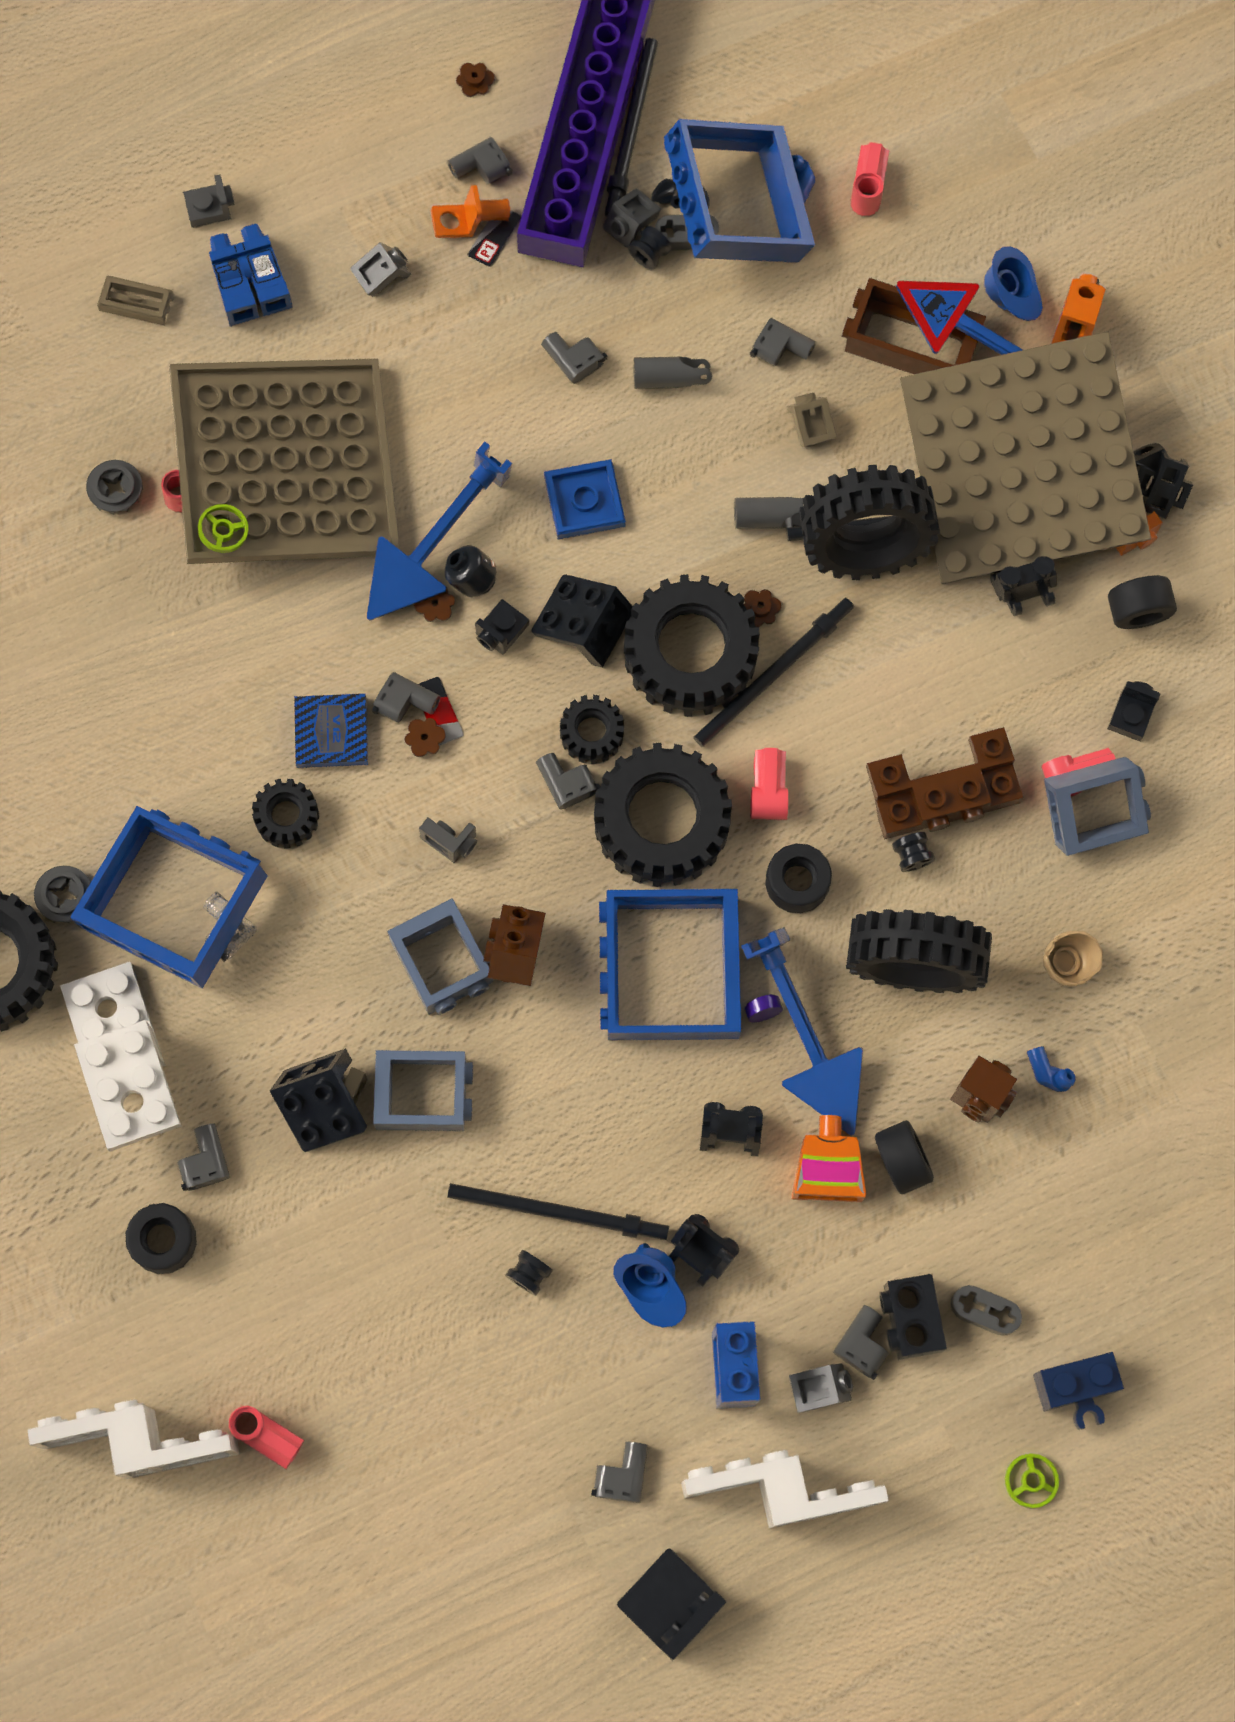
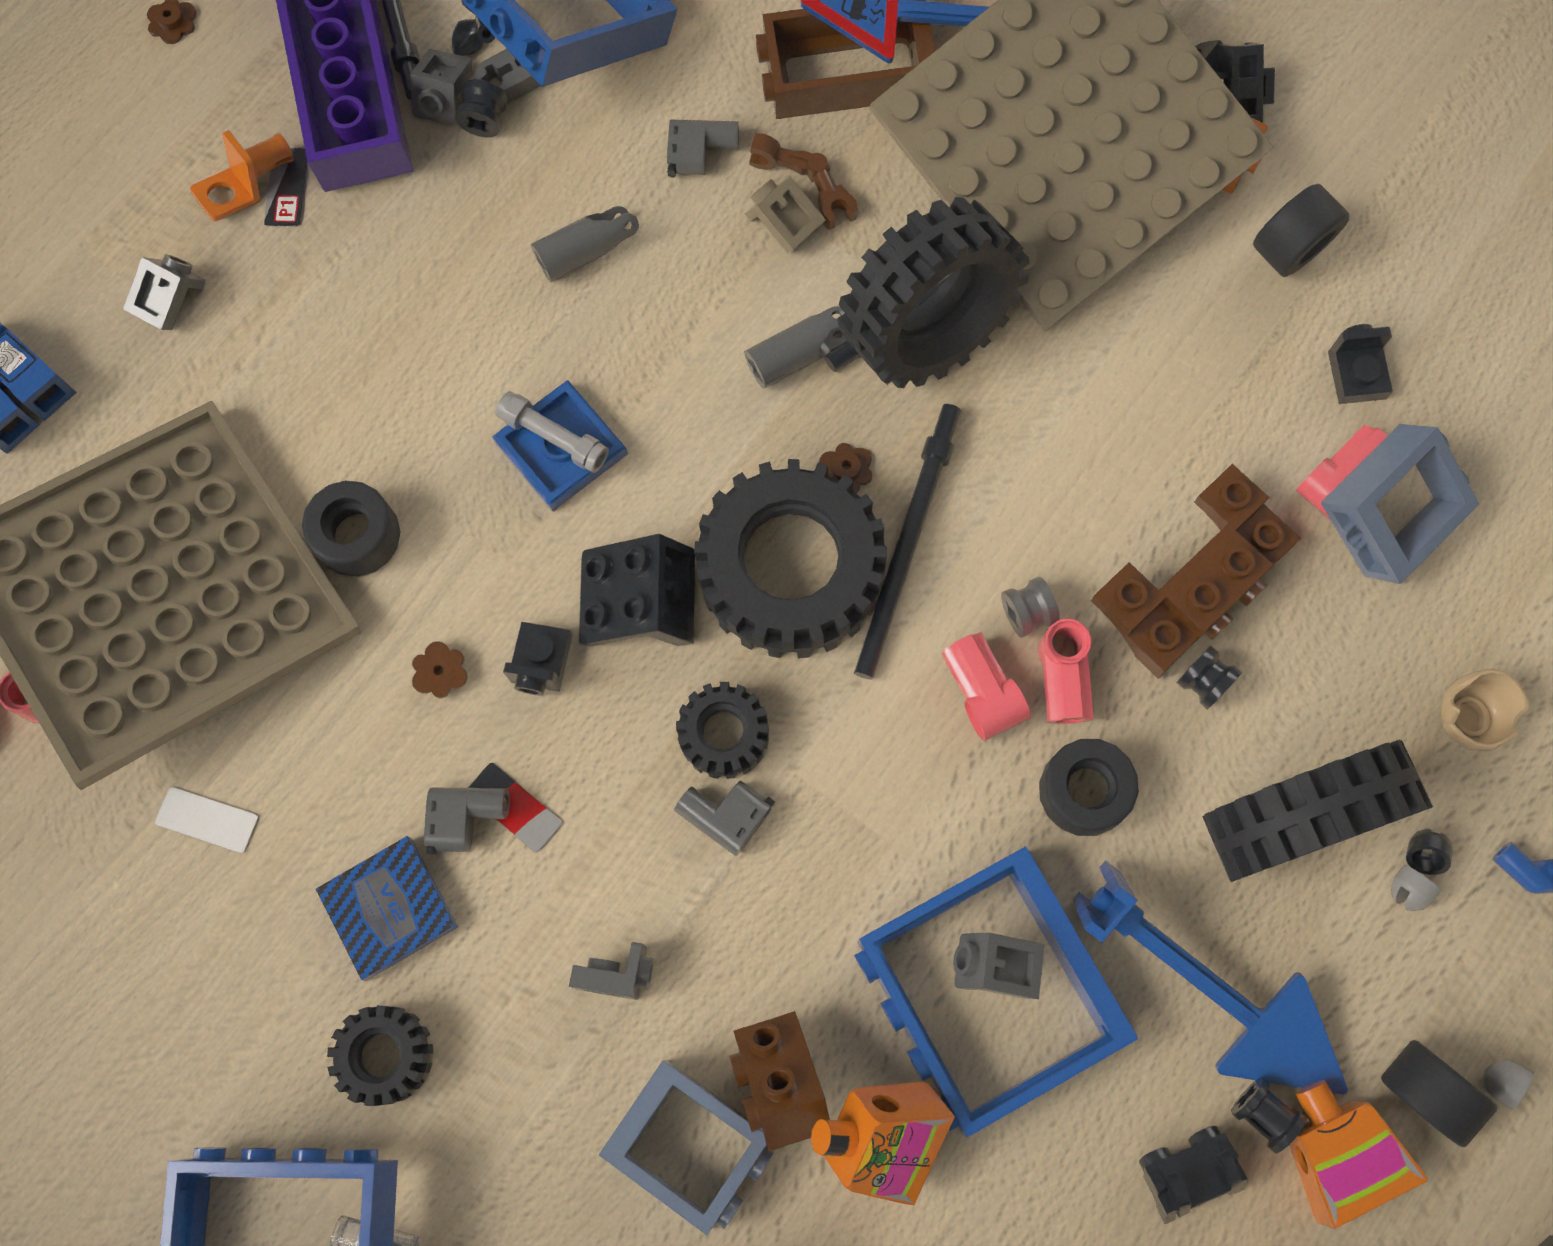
camera: 20 degrees left, 0 degrees up
(223, 522) = (93, 717): lime piece -> none
(246, 622) = (206, 819): none -> white sticker
(400, 578) = (378, 662): blue piece -> none
(419, 730) = (500, 849): reddish brown plant -> none
(420, 466) = (334, 505): none -> black tyre
(470, 571) = (463, 607): black head -> none
(484, 157) = (227, 101): dark grey piece -> none
(558, 1006) = (885, 1139): none -> orange torso
(569, 464) = (519, 413): none -> light grey bar
(574, 361) = (463, 282): dark grey piece -> none
(656, 860) = (870, 866): black tyre -> none
(681, 945) = (999, 965): none -> dark grey bracket
(763, 1008) = (1141, 984): dark purple tile -> none
(796, 1119) = (1269, 1115): none -> black bush
(823, 805) = (1067, 678): none -> coral piece
(824, 374) = (768, 153): none -> reddish brown piece
(826, 752) = (1030, 606): none -> flat silver wheel
(953, 1178) = (1507, 1082): none -> light grey hinge
(964, 1042) = (1415, 888): none -> light grey hinge
(980, 1024) = (1434, 863): none -> black hinge
(985, 1090) = (1491, 946): reddish brown brick -> none
(1025, 582) = (1146, 278): black piece -> none

